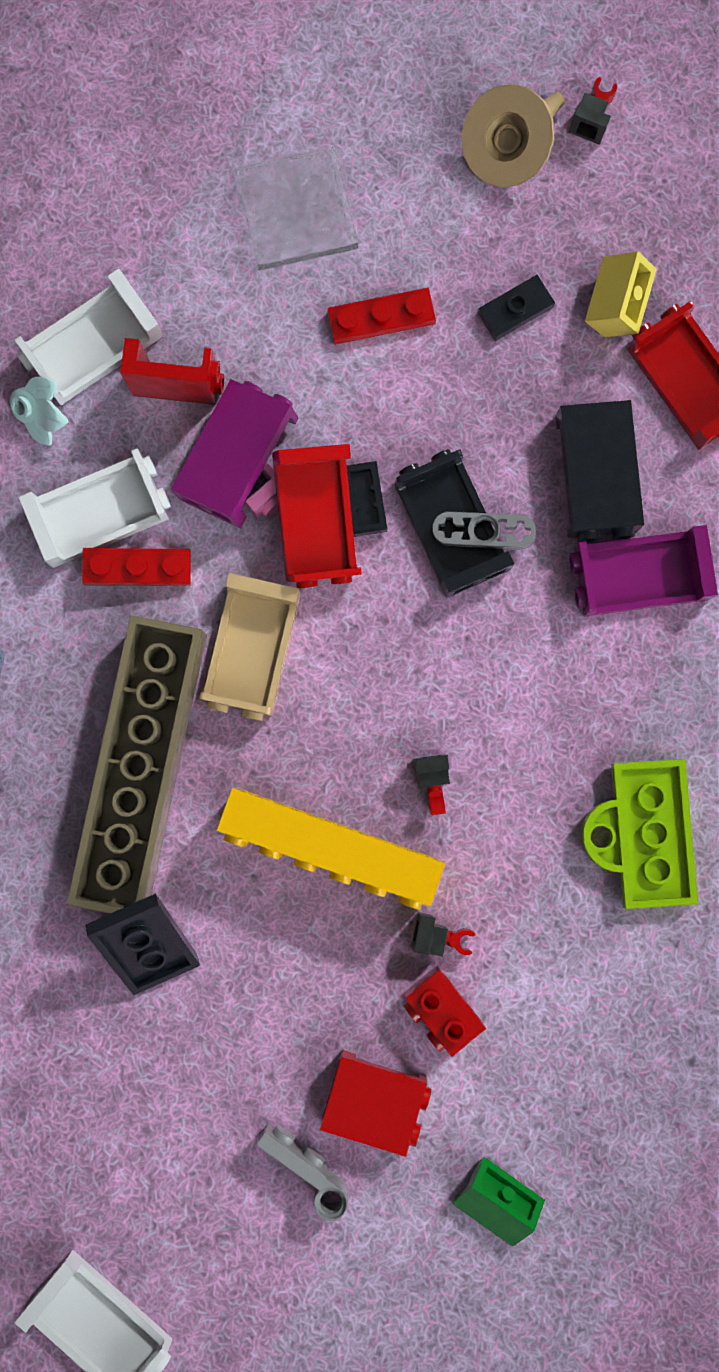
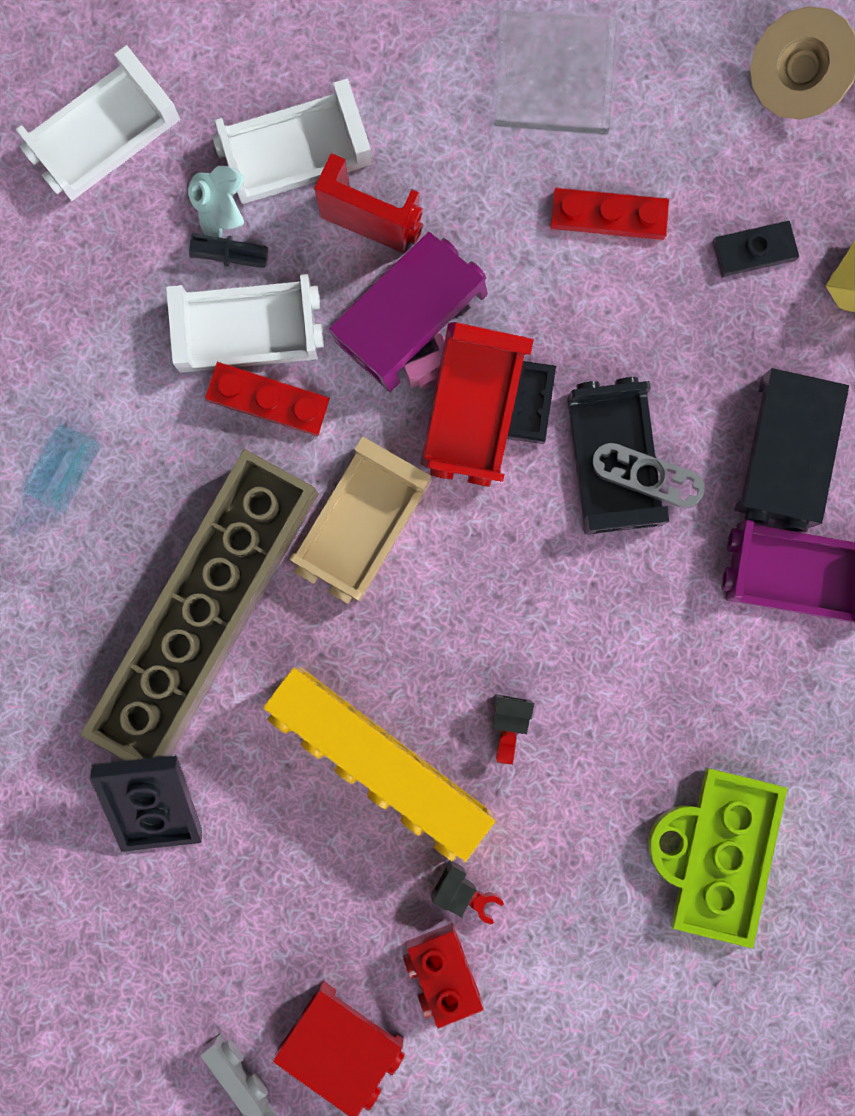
camera: 15 degrees right, 0 degrees up
(61, 449) = (228, 251): none -> black axle

